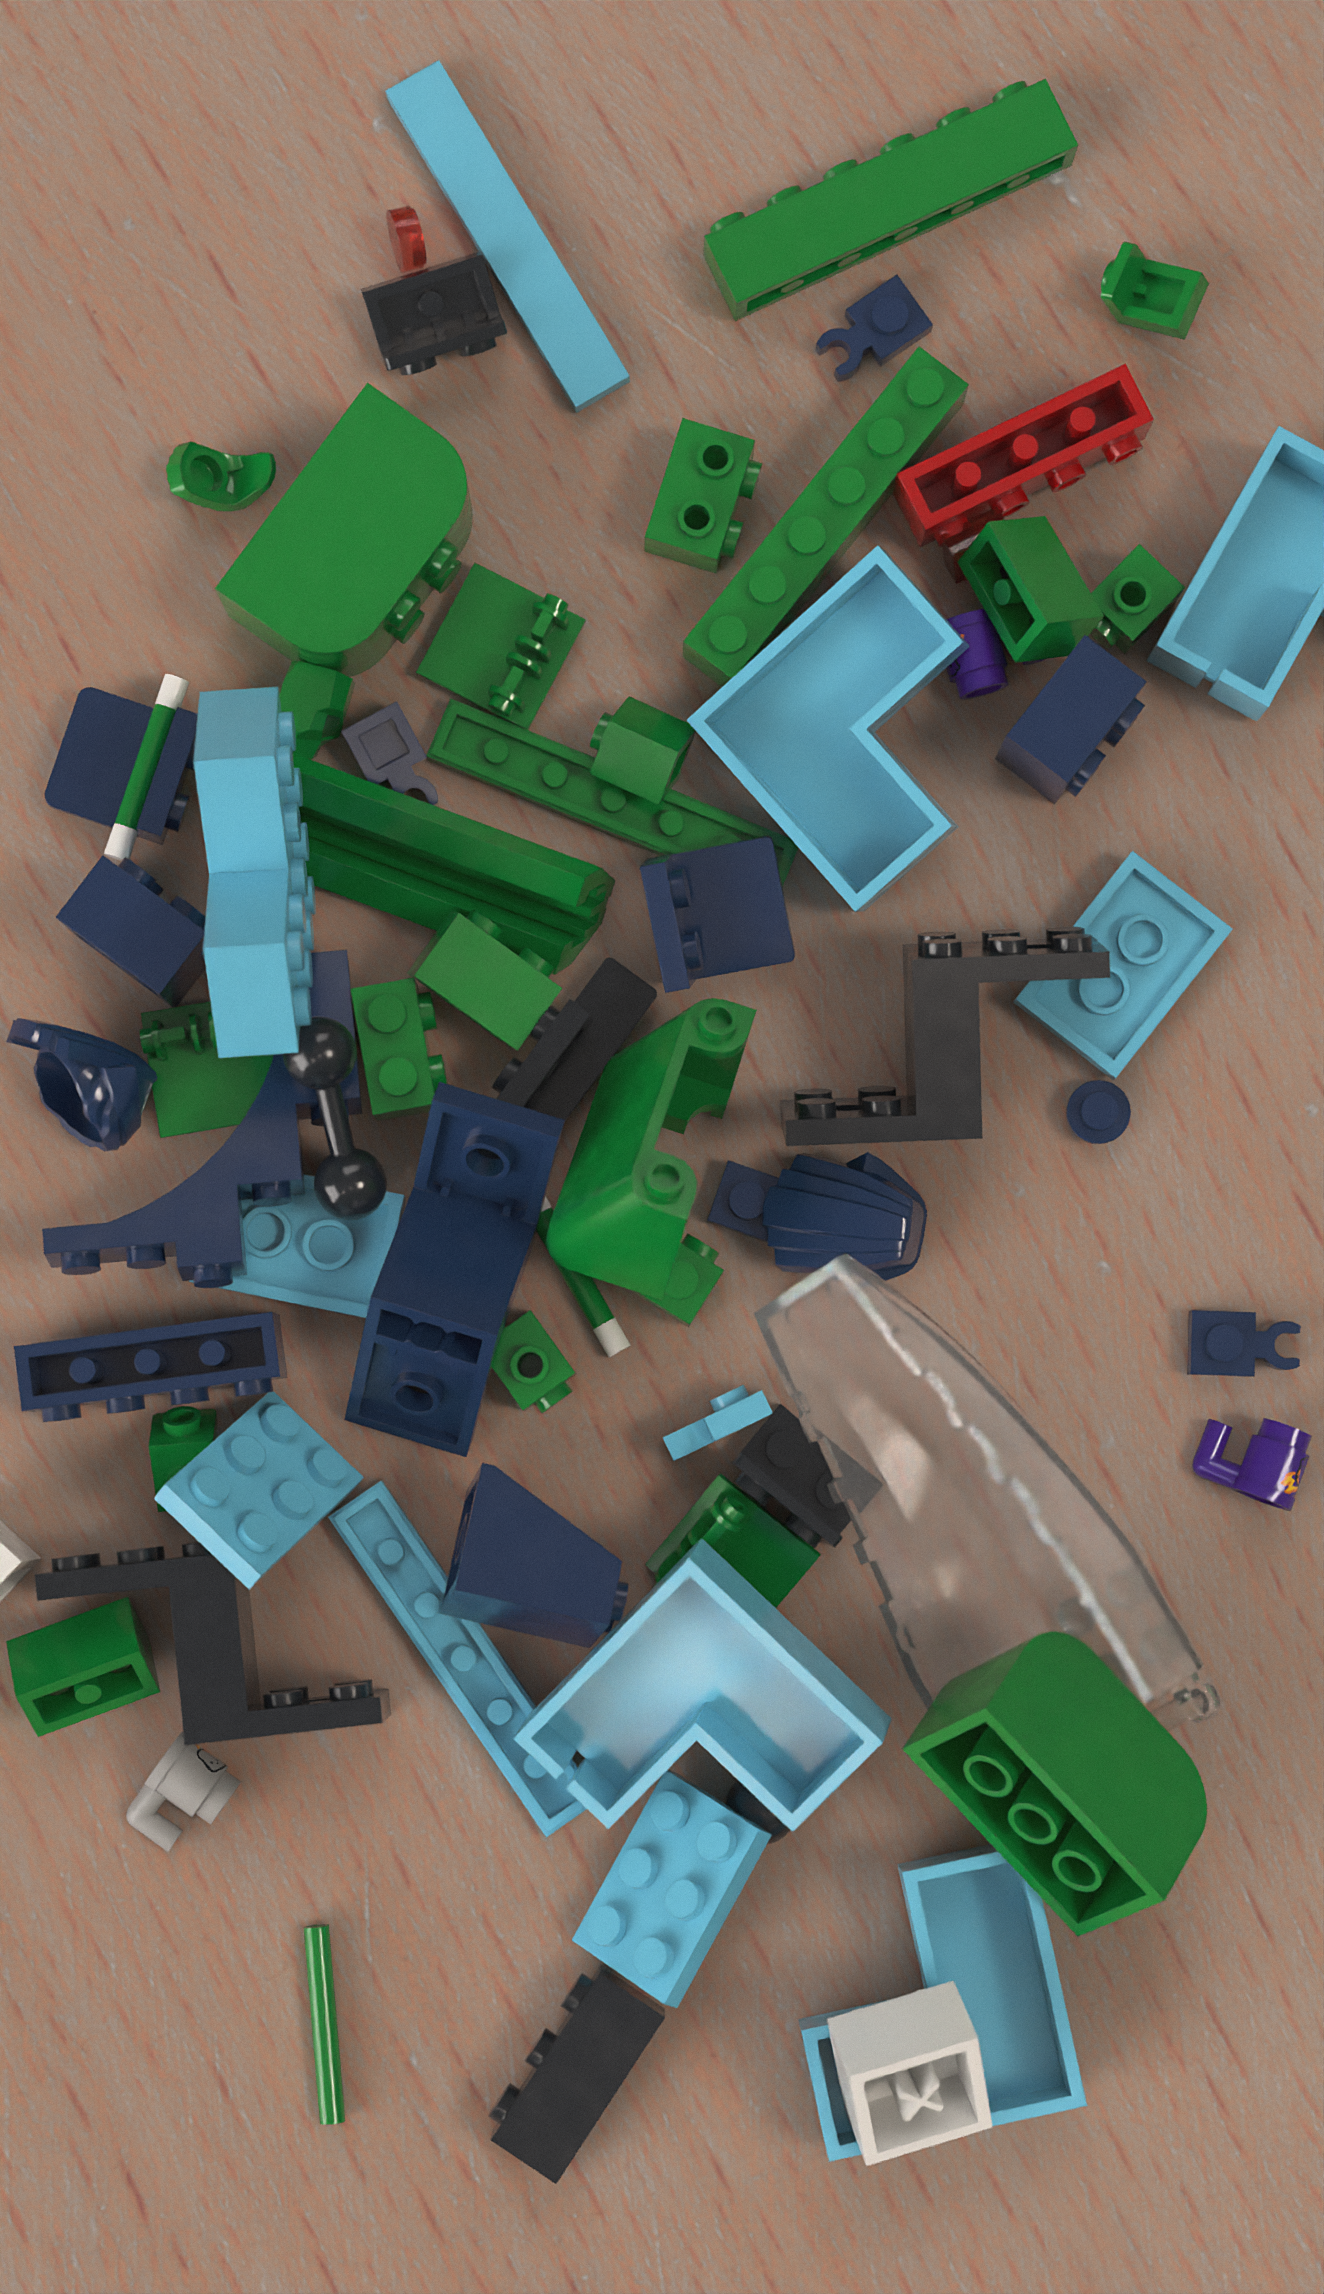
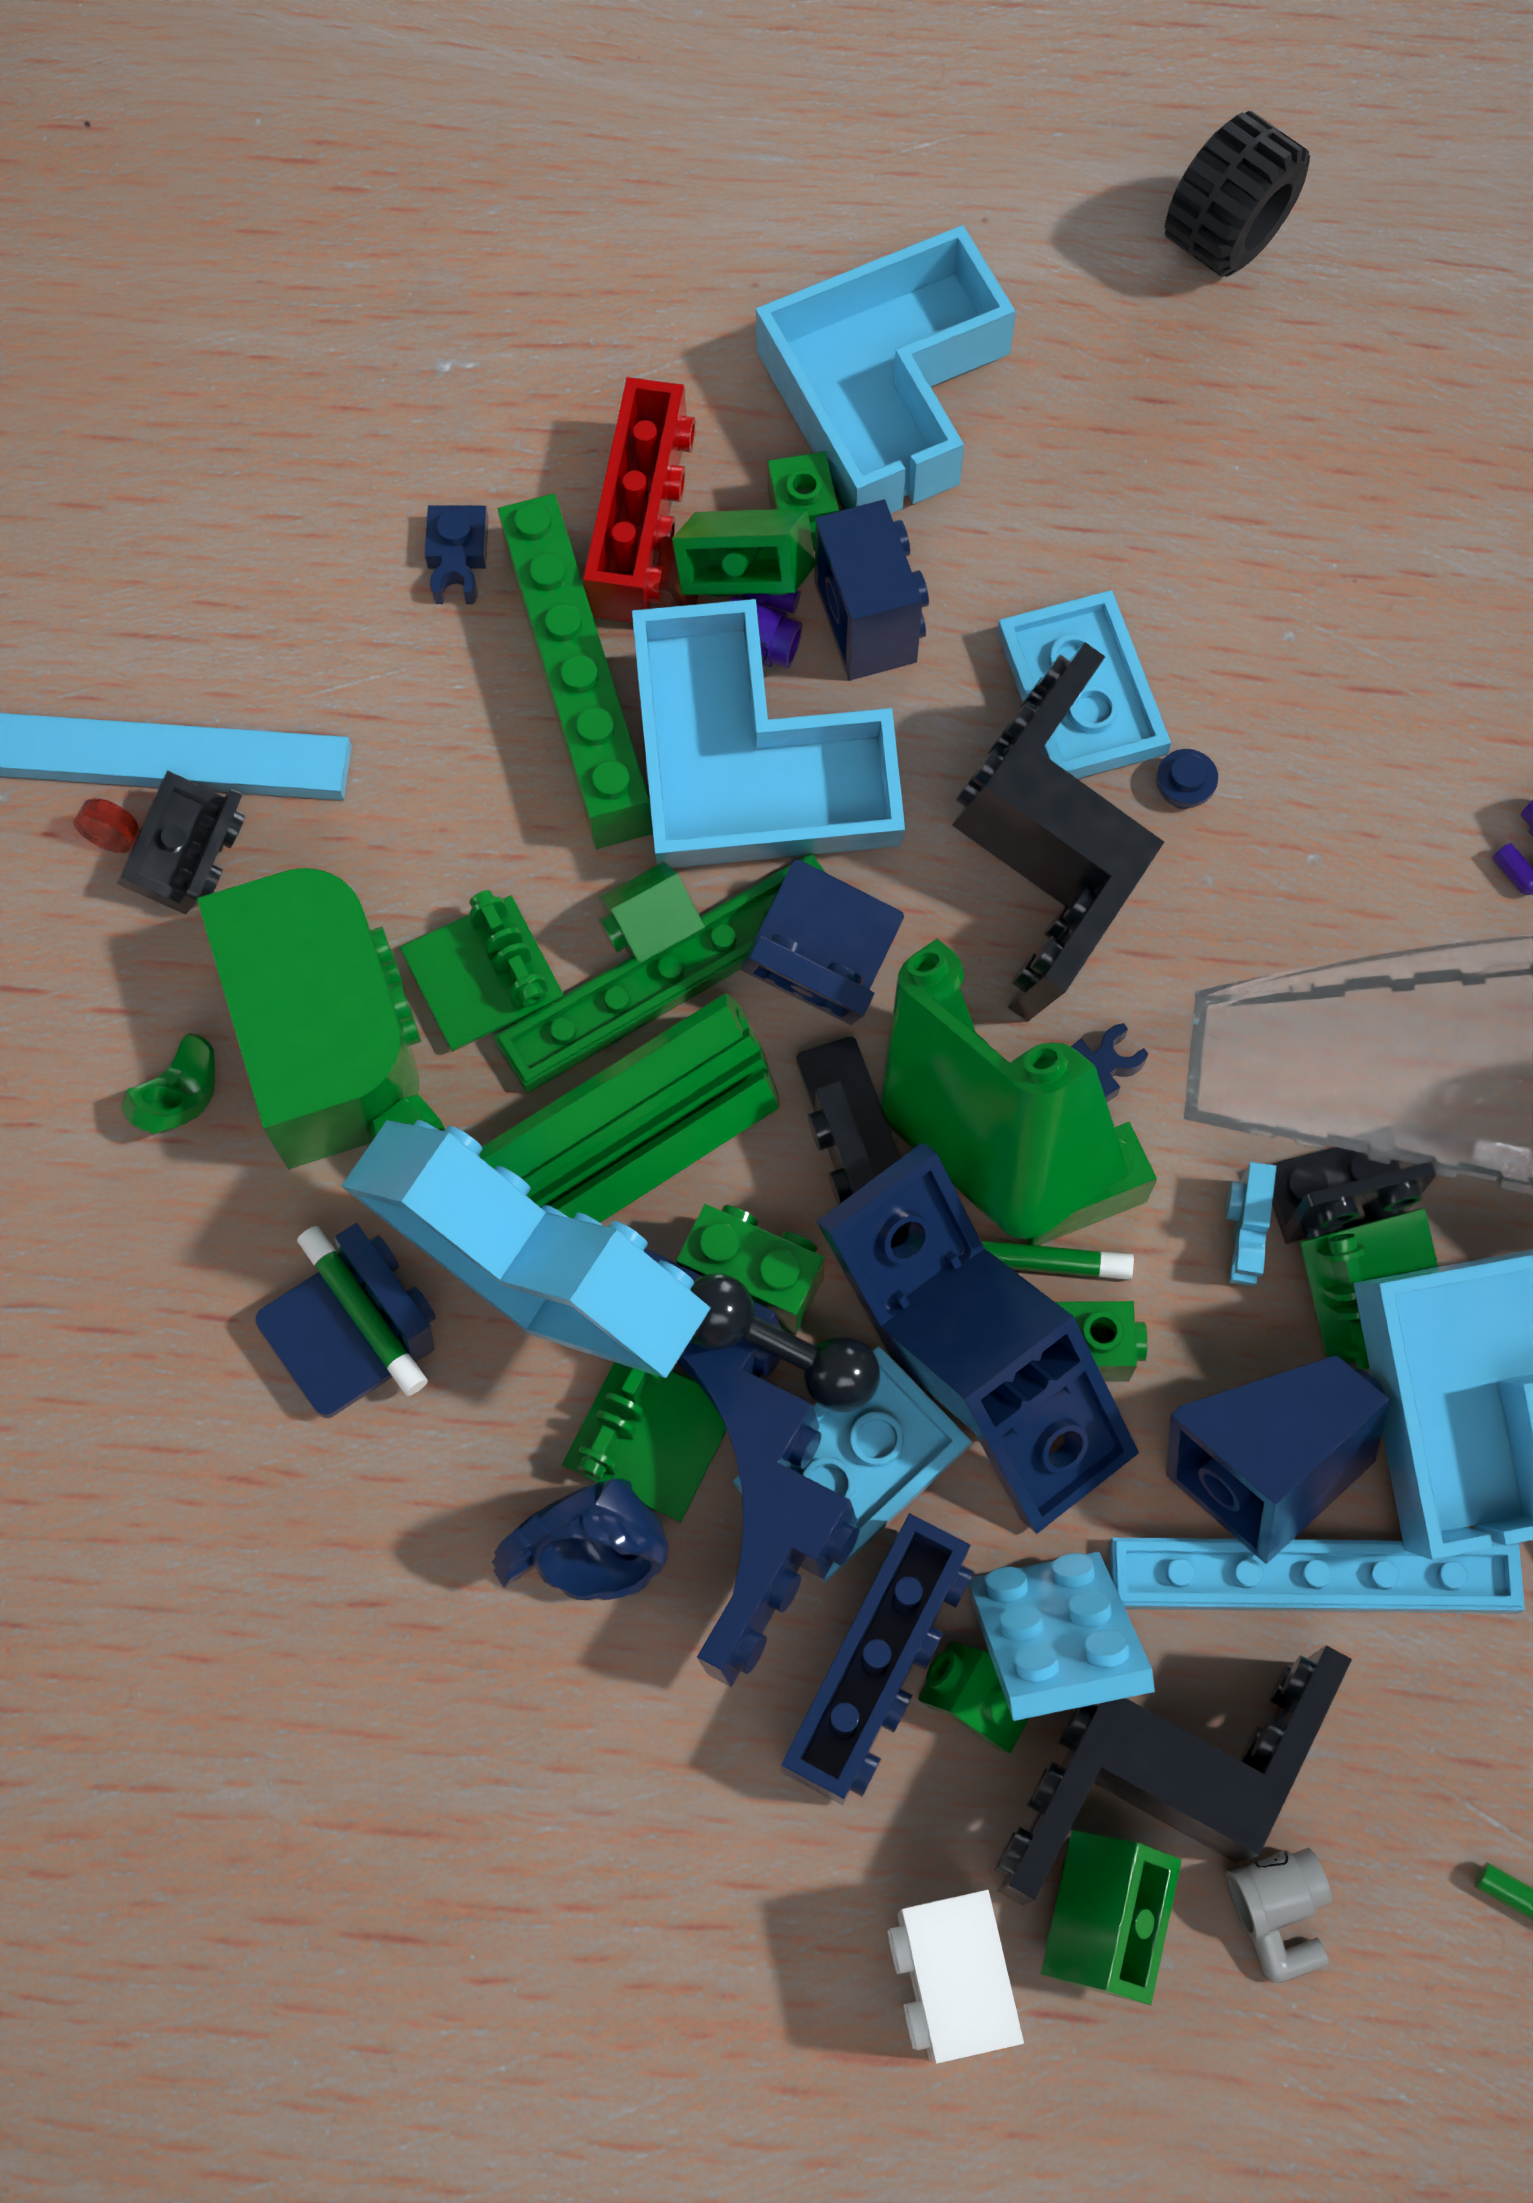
camera: 50 degrees left, 15 degrees down
(136, 930) = (494, 1403): dark blue brick -> none
(388, 749) = (494, 1106): dark blue plate -> none
(485, 978) = (746, 1152): green brick -> none
(701, 495) = (484, 744): green brick -> none
(843, 1208) = (1141, 1009): dark blue hair -> none
(889, 198) = (366, 476): green brick -> none
(1152, 293) = (585, 347): green bracket -> none
(1229, 1344) = (1442, 802): dark blue plate -> none

